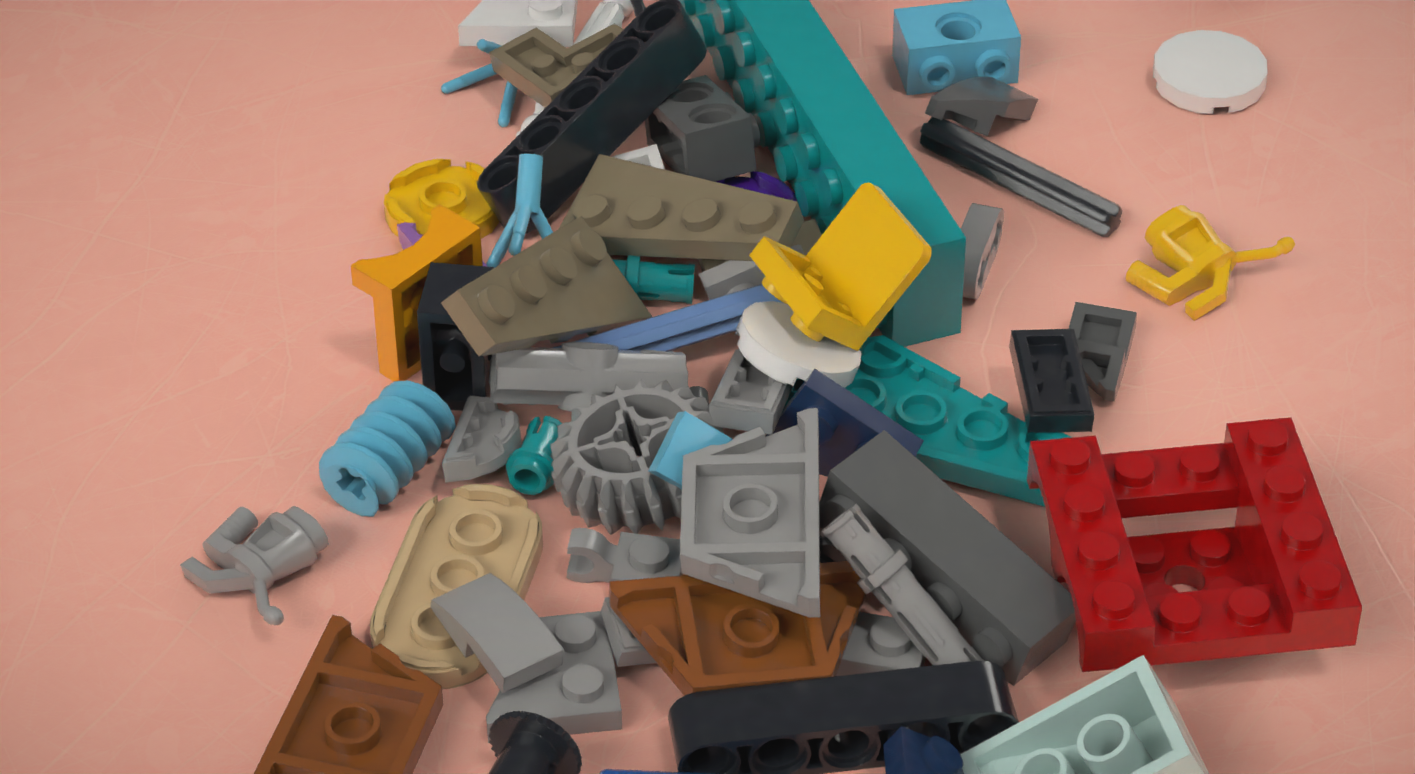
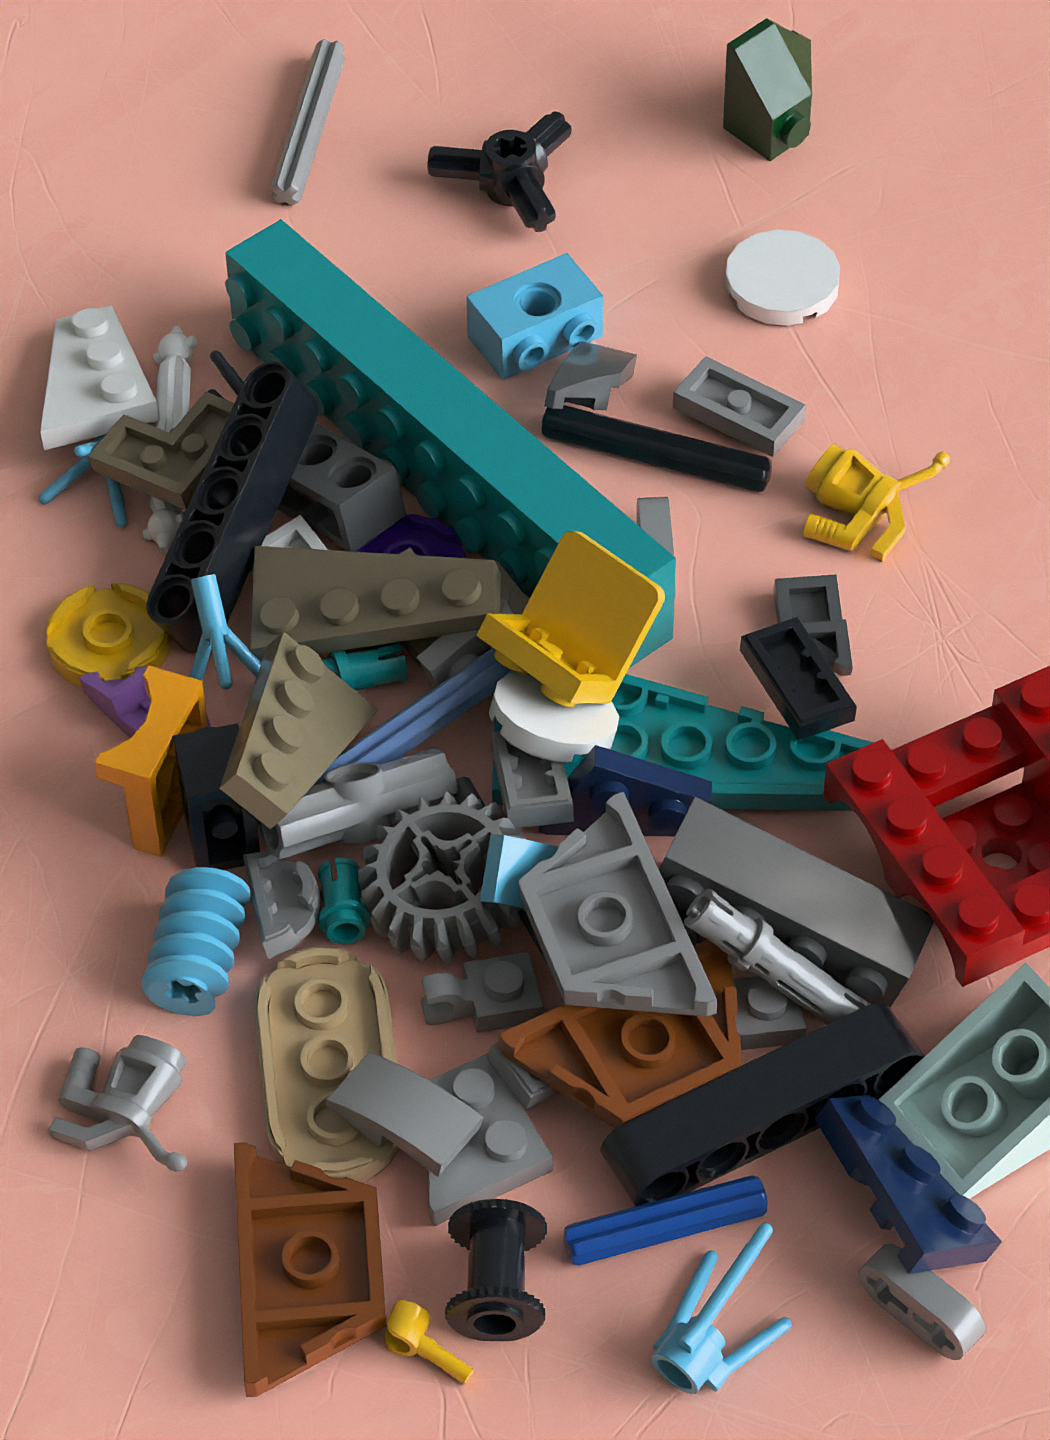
camera: 20 degrees left, 10 degrees up
(1113, 160) = (739, 406): none -> light grey plate

